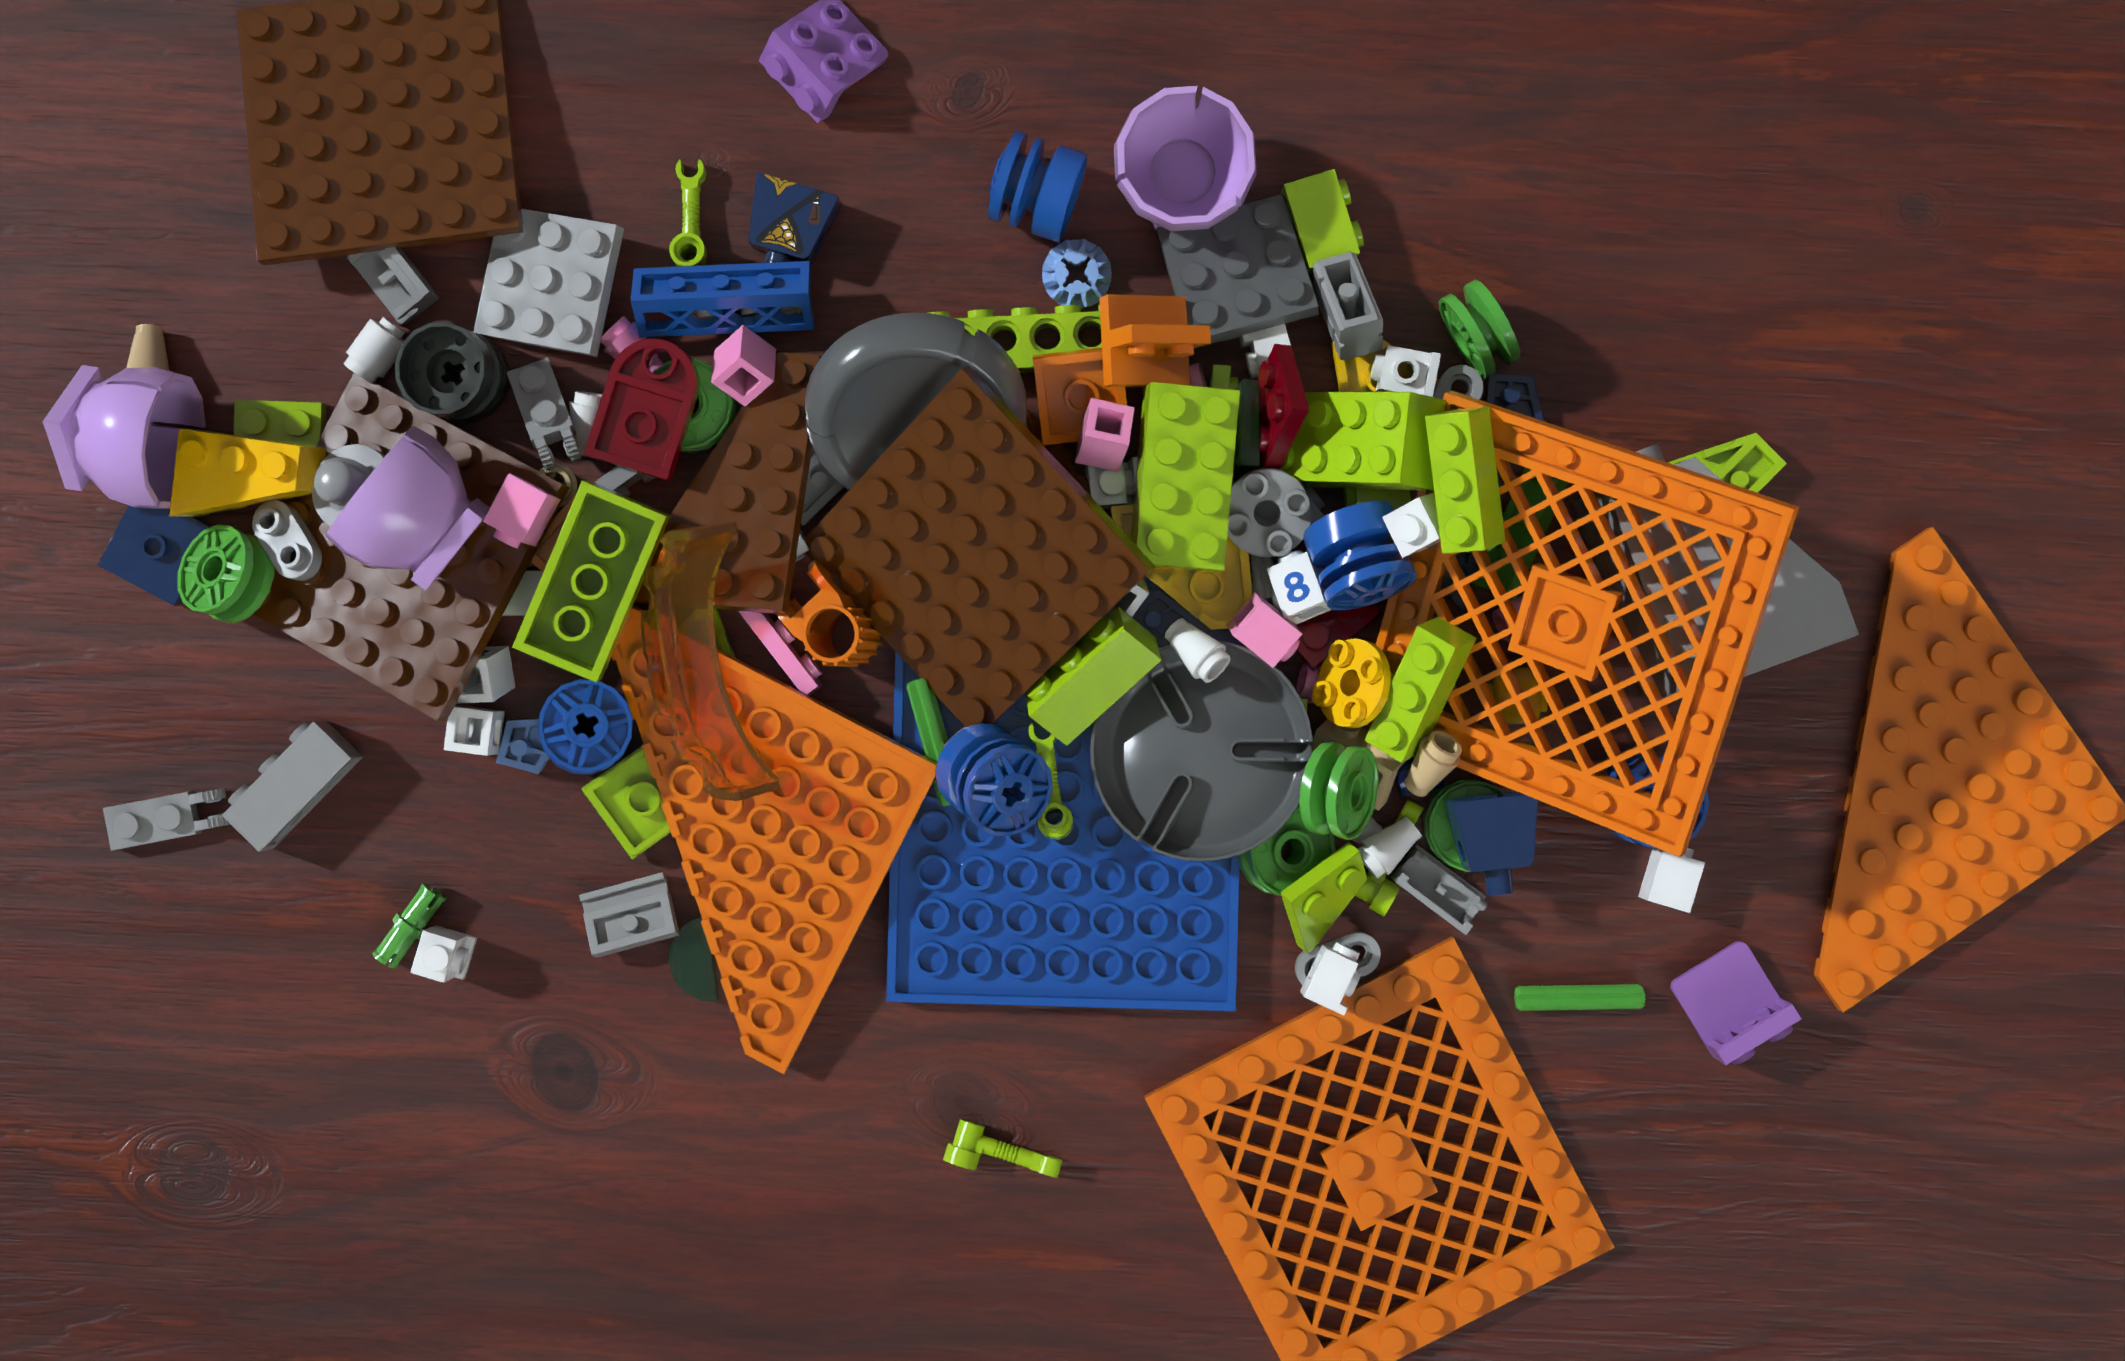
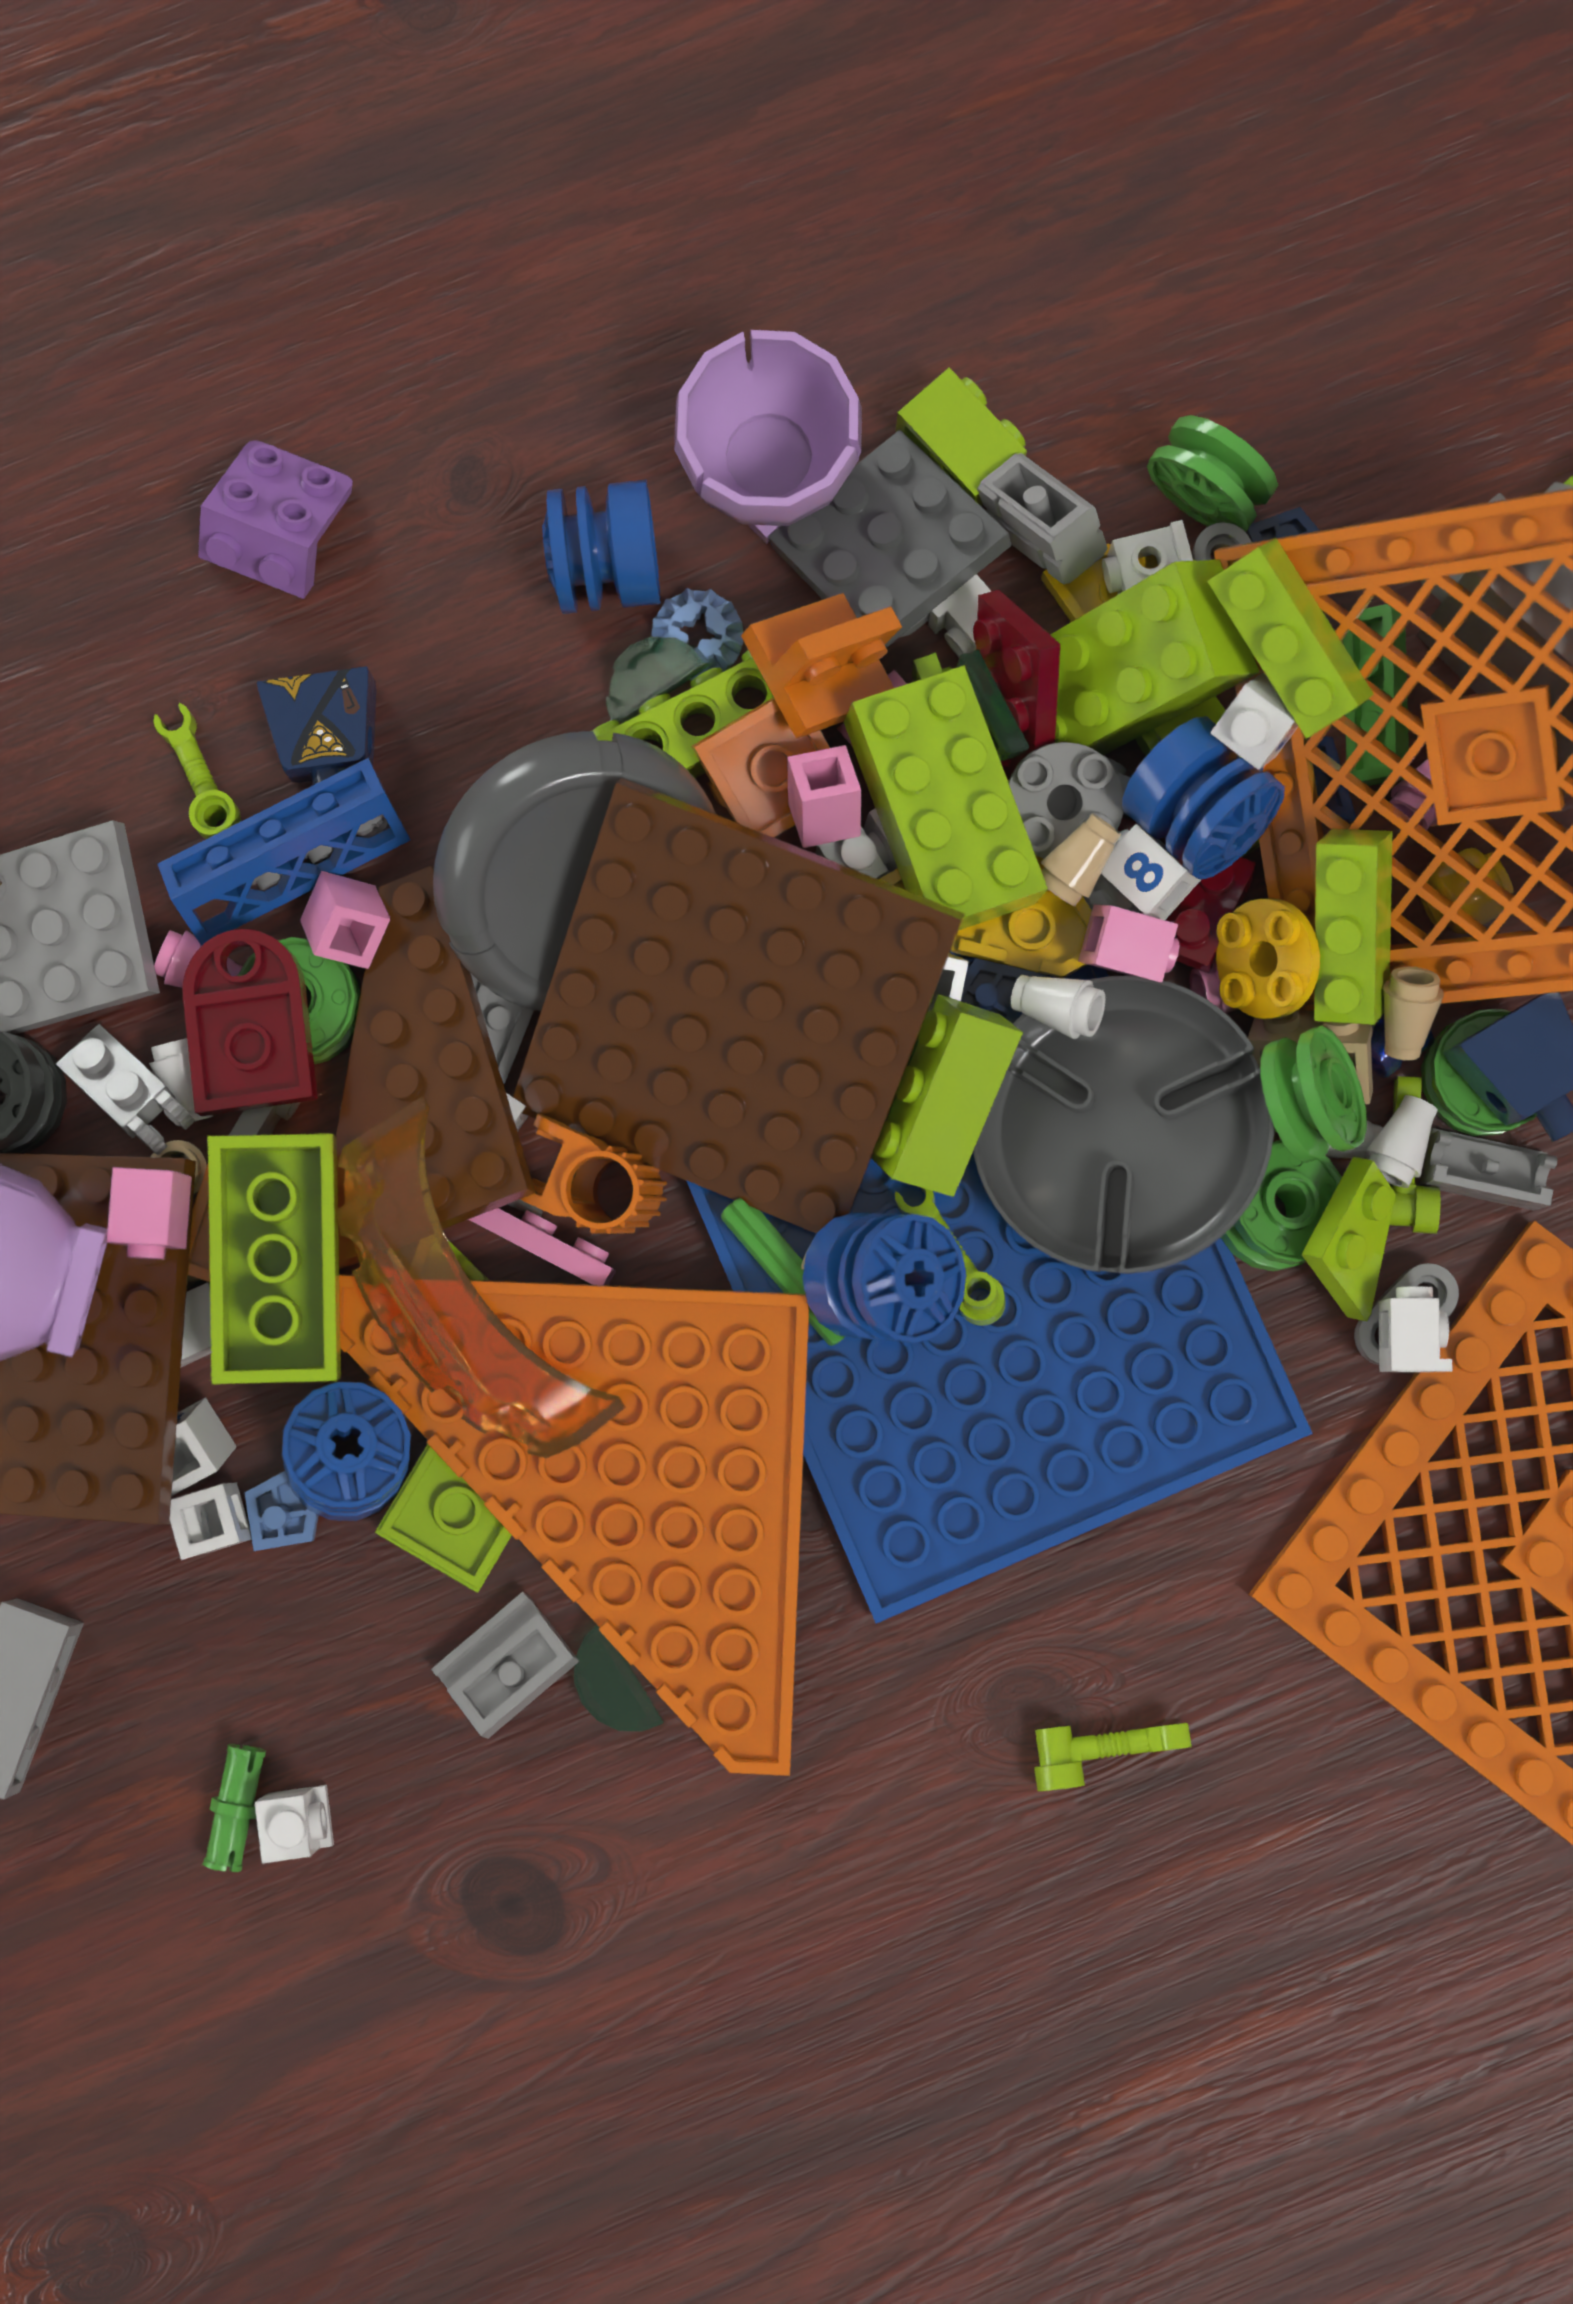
camera: 25 degrees left, 5 degrees down
(1031, 286) = (650, 670): none -> clear green tile
(1255, 559) = (1079, 860): none -> tan cone

